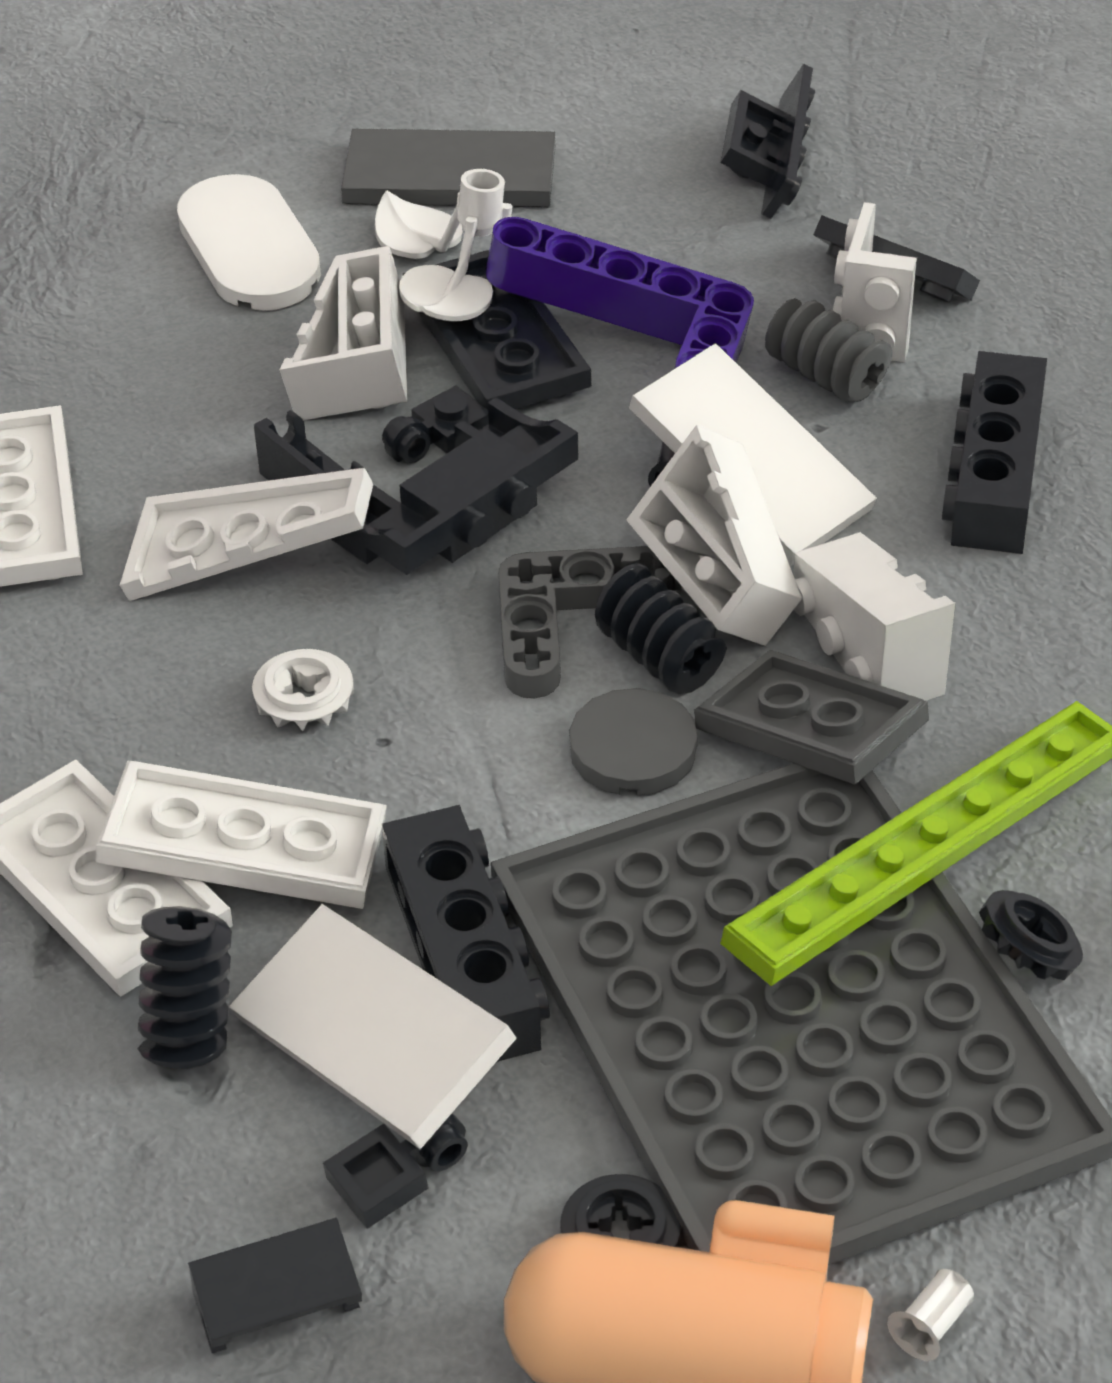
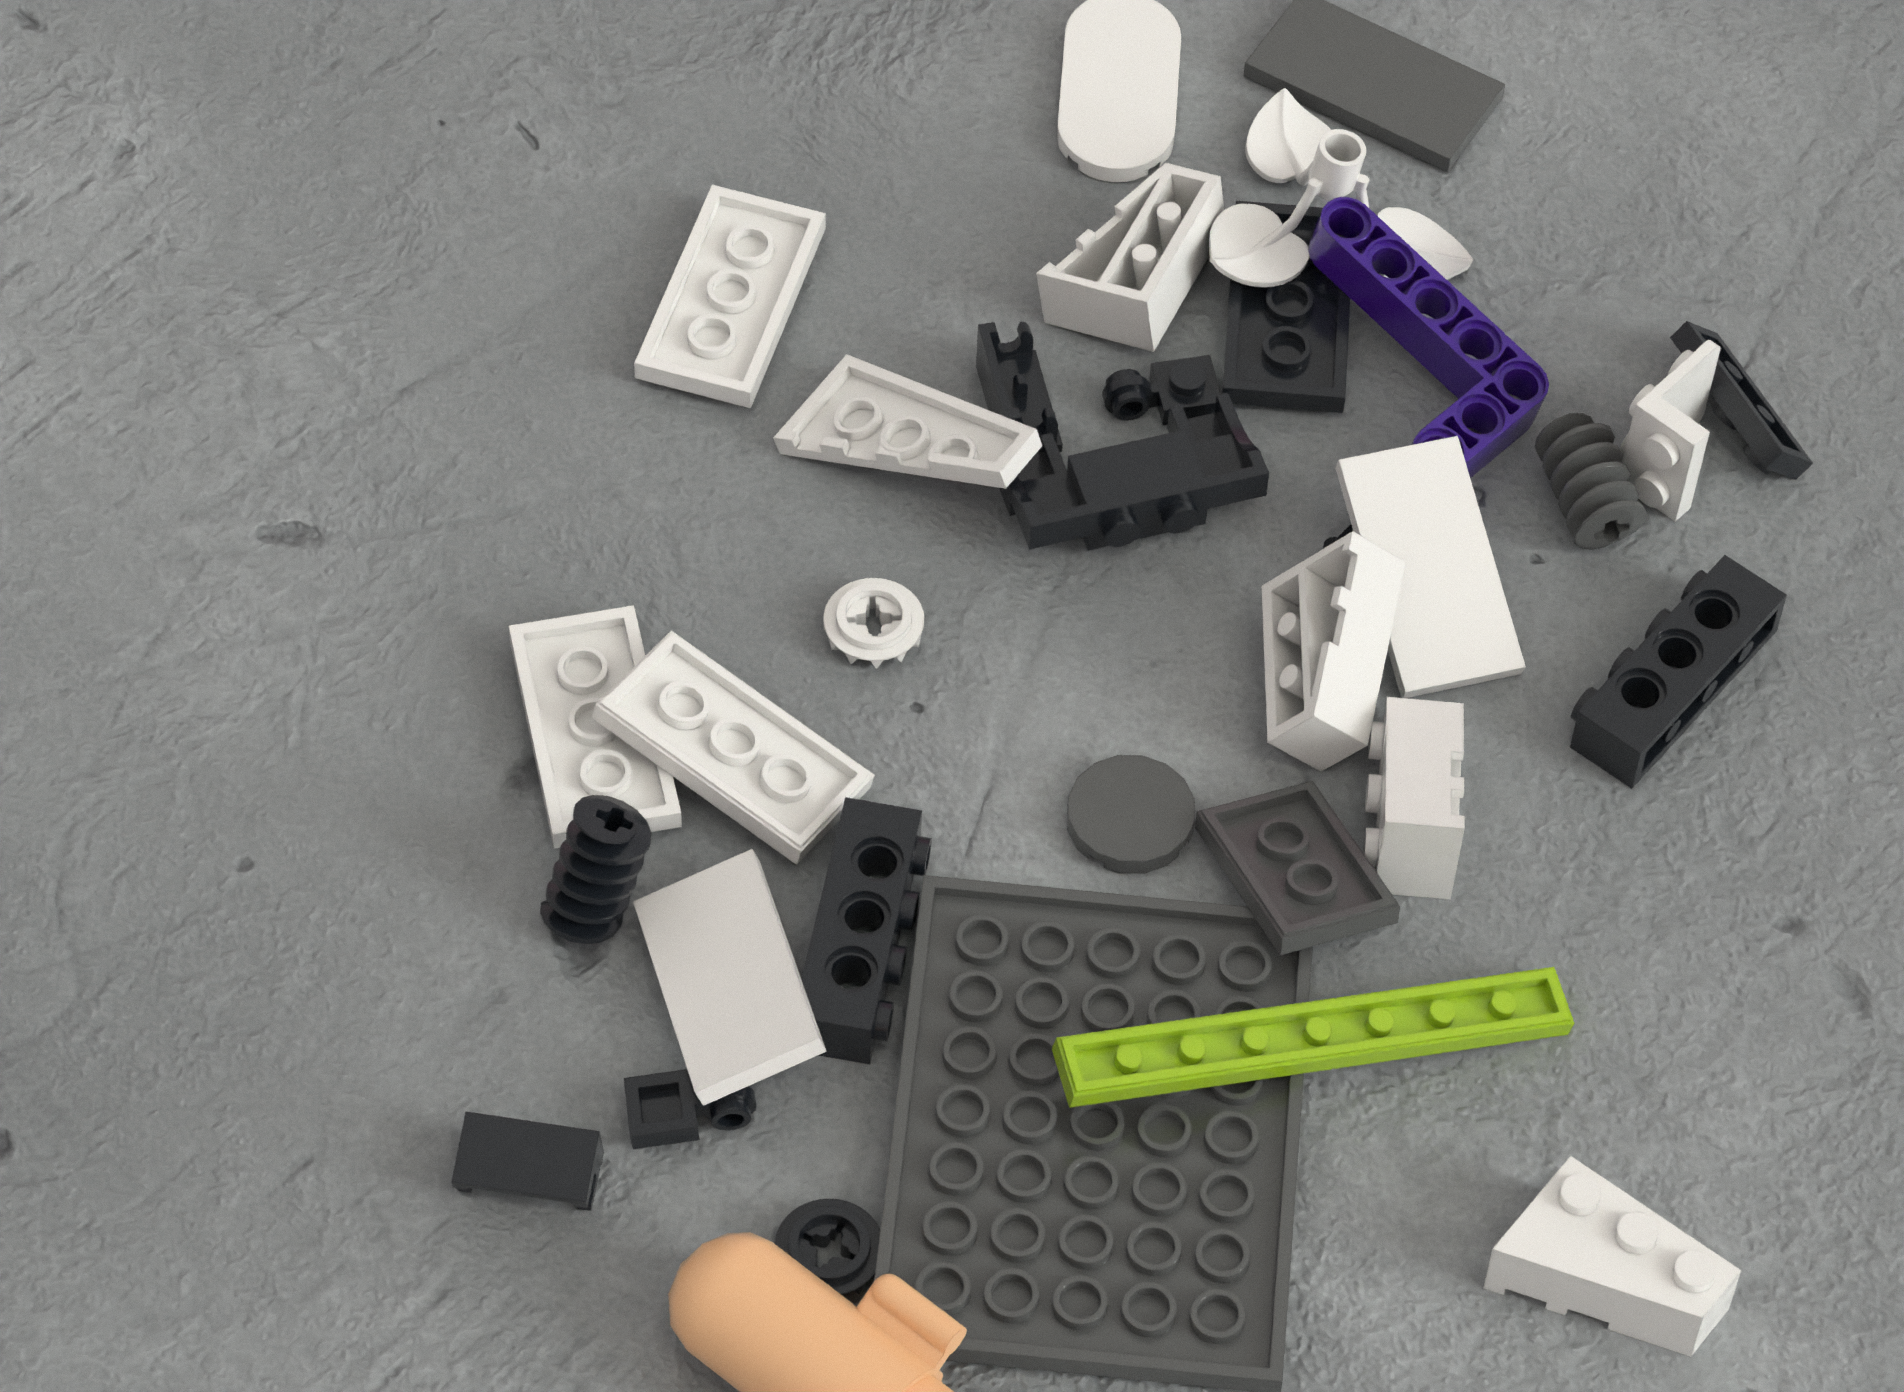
camera: 25 degrees right, 10 degrees up
(543, 599) = (1144, 629): dark grey beam -> none
(659, 629) = (1218, 714): black piece -> none
(768, 140) = (1710, 189): black bracket -> none
(1031, 934) = (1364, 1179): black gear -> none

